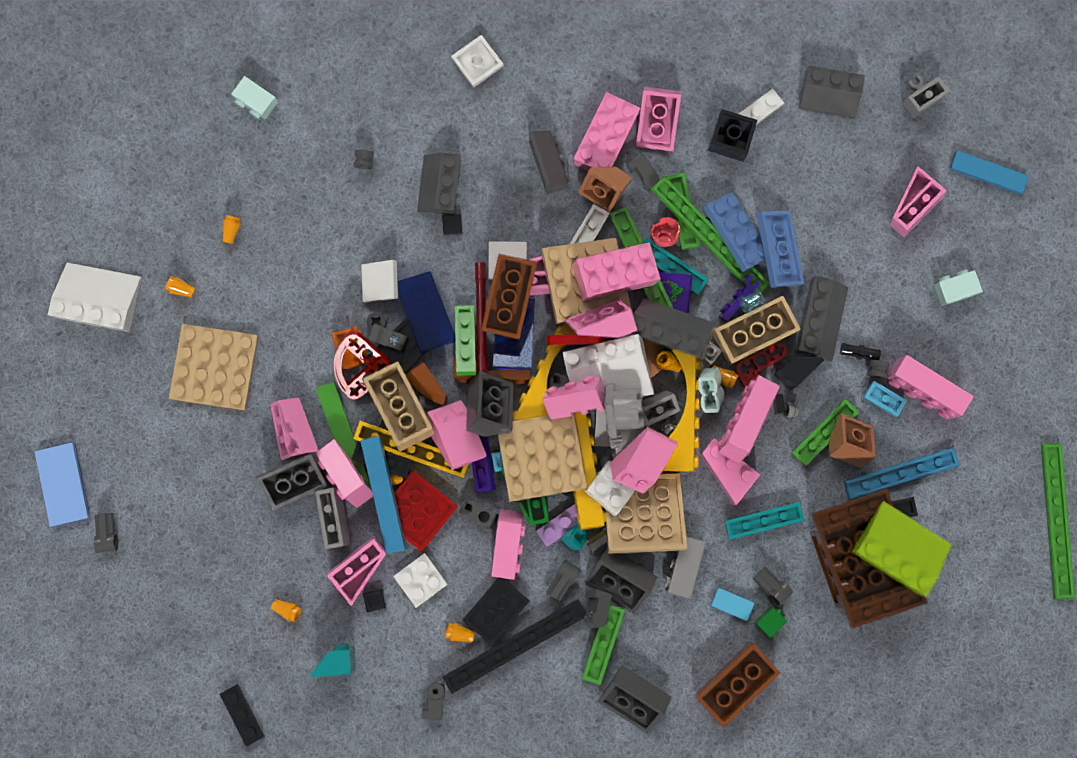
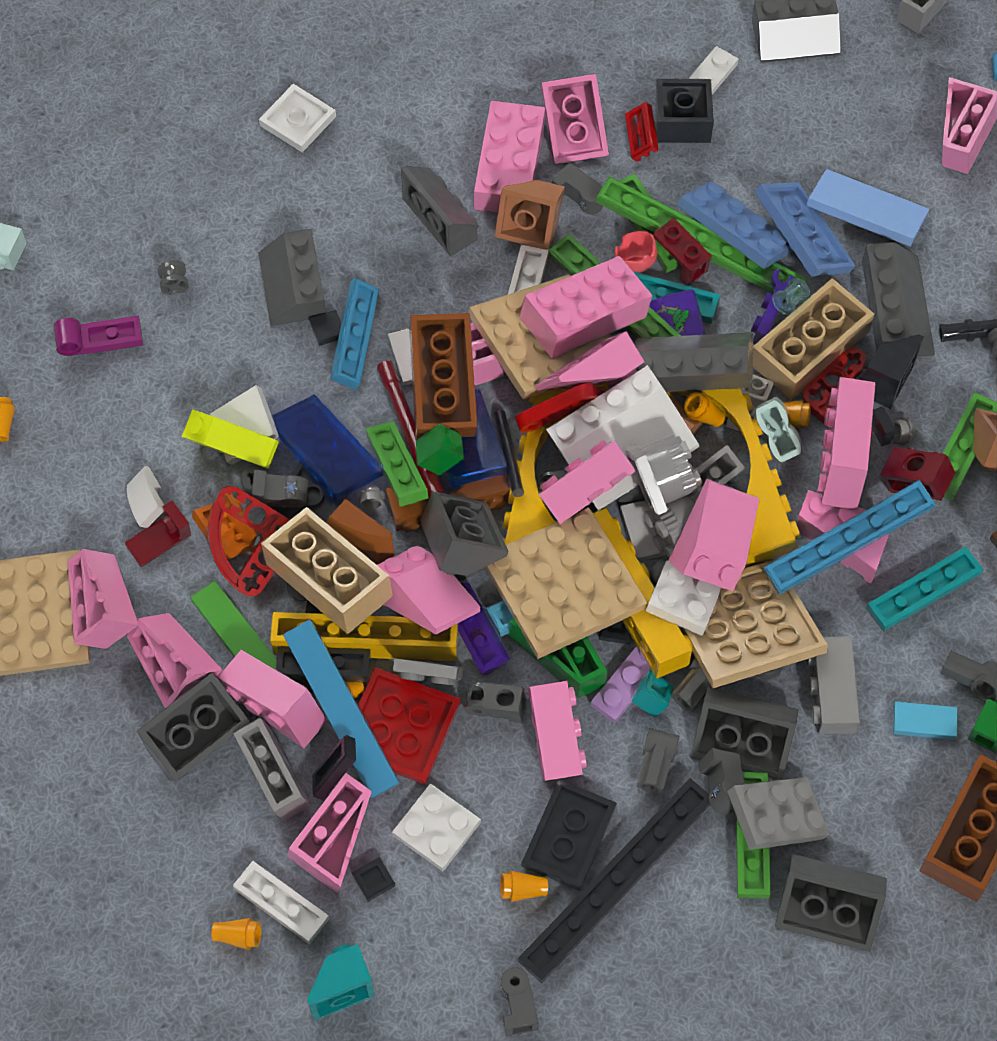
camera: 15 degrees left, 20 degrees down
(259, 375) = (98, 600): none -> bright pink wedge
(303, 313) = (144, 498): none -> white slope
(305, 187) = (98, 336): none -> magenta plate
(306, 341) = (159, 536): none -> dark red bracket
(316, 599) = (281, 902): none -> white plate
(366, 291) = (230, 439): none -> neon yellow slope
(369, 530) = (334, 767): none -> black tile
(442, 488) = (417, 670): none -> light grey plate
(444, 354) = (371, 498): none -> light grey plate
(467, 235) = (354, 334): none -> dark azure tile
(492, 345) = (439, 449): none -> green brick
(537, 353) = (509, 453): none -> black bar
(621, 639) = (778, 813): none -> light grey plate
(695, 241) = (685, 249): none -> dark red bracket
(702, 140) = (645, 129): none -> red tile
(727, 480) = (849, 537): none -> dark azure tile
(792, 455) = (911, 465): none -> dark red brick
(828, 244) = (868, 207): none -> light blue tile

